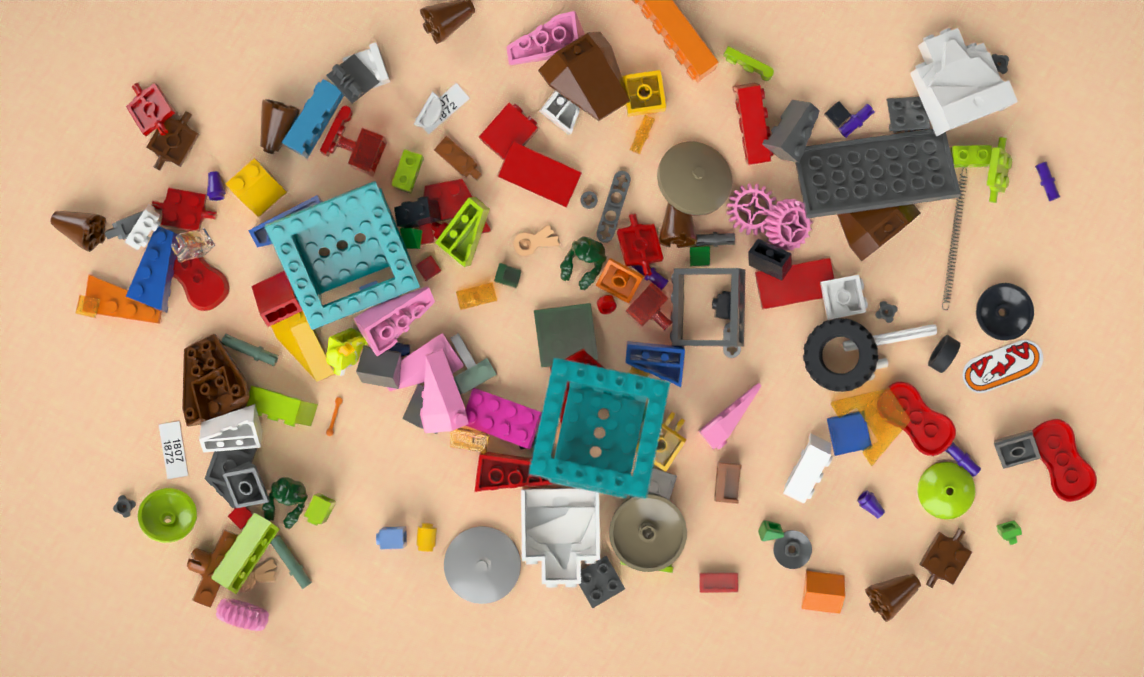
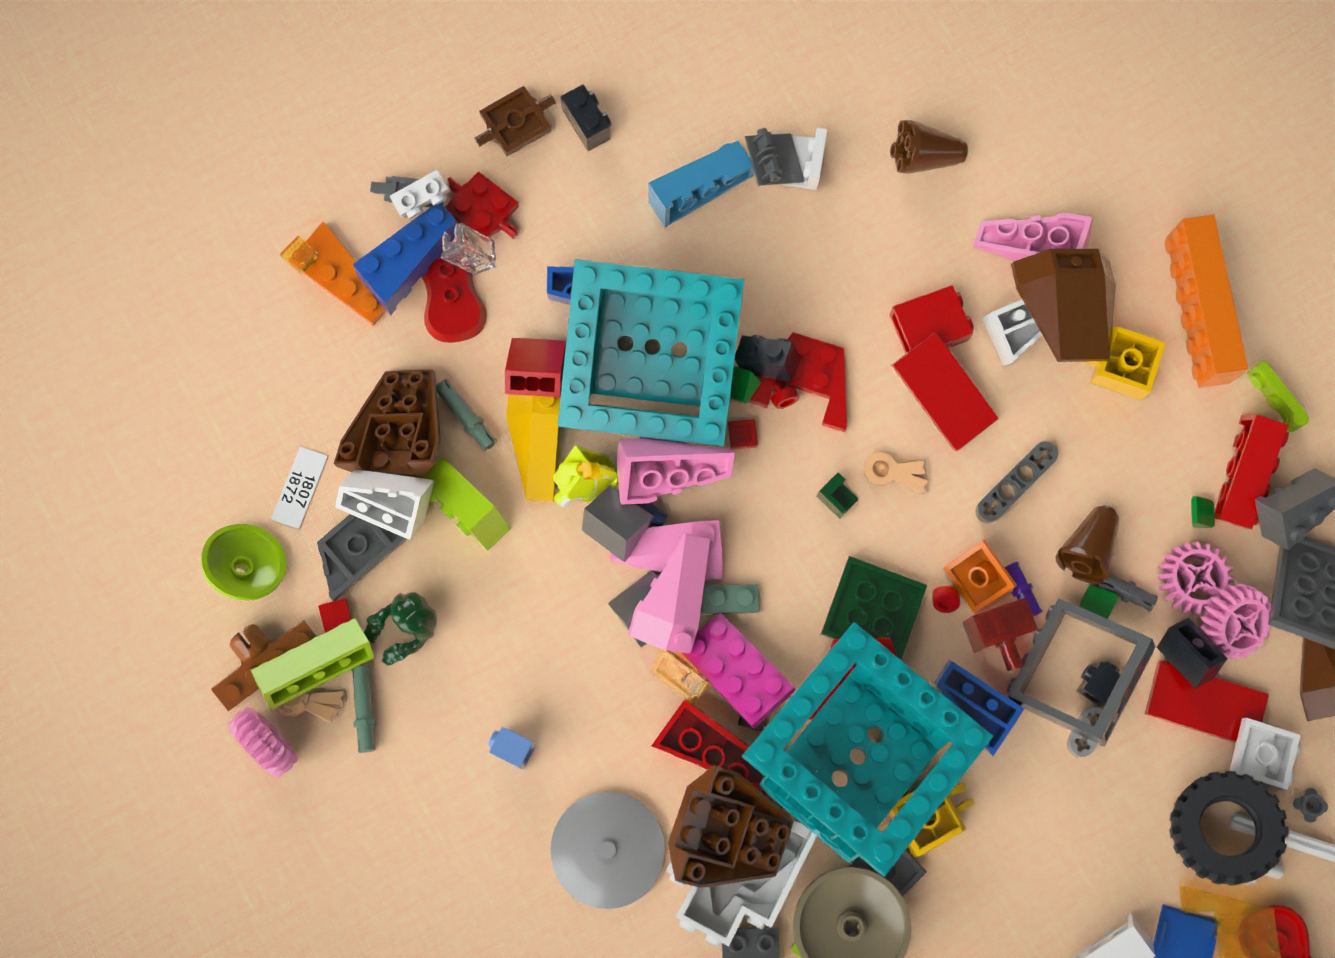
camera: 25 degrees right, 10 degrees down
(81, 228) = (347, 161): reddish brown cone -> none
(118, 507) = (191, 518): dark grey plate -> none
(150, 109) = (509, 70): plate -> none
(215, 187) = (535, 200): dark purple cone -> none
(216, 114) = (585, 117): none -> black brick
(246, 485) = (363, 578): dark grey slope -> none
(256, 187) = (585, 222): yellow slope -> none
(275, 124) = (651, 160): reddish brown cone -> none
(319, 509) = (439, 659): lime brick -> none
(337, 129) = (720, 209): red hinge -> none
(338, 401) = (539, 539): orange hinge -> none
(365, 151) = (743, 250): clear red brick -> none
(407, 171) = (781, 303): lime brick -> none
(426, 537) = (555, 772): yellow brick -> none
(430, 112) = (846, 249): white plate -> none
(451, 101) = (862, 254): white sticker -> none
(457, 158) = (850, 322): dark orange hinge -> none
(463, 351) = (731, 559): light grey beam -> none
(464, 231) = (815, 410): lime wedge -> none
(476, 296) = (785, 500): clear yellow plate -> none
(545, 519) = (726, 832): none -> reddish brown wedge
(585, 195) = (986, 450): dark grey bush -> none
(589, 252) = (961, 518): dark green hair -> none
(640, 245) = (1029, 545): red plate -> none
(642, 134) = (1098, 412): clear yellow pin -> none
(694, 178) = (1141, 499): dark tan dish -> none
(723, 424) = (1020, 838): bright pink wedge -> none
(727, 483) = (988, 917): dark orange panel -> none
(736, 164) = (1202, 512): none -> green slope

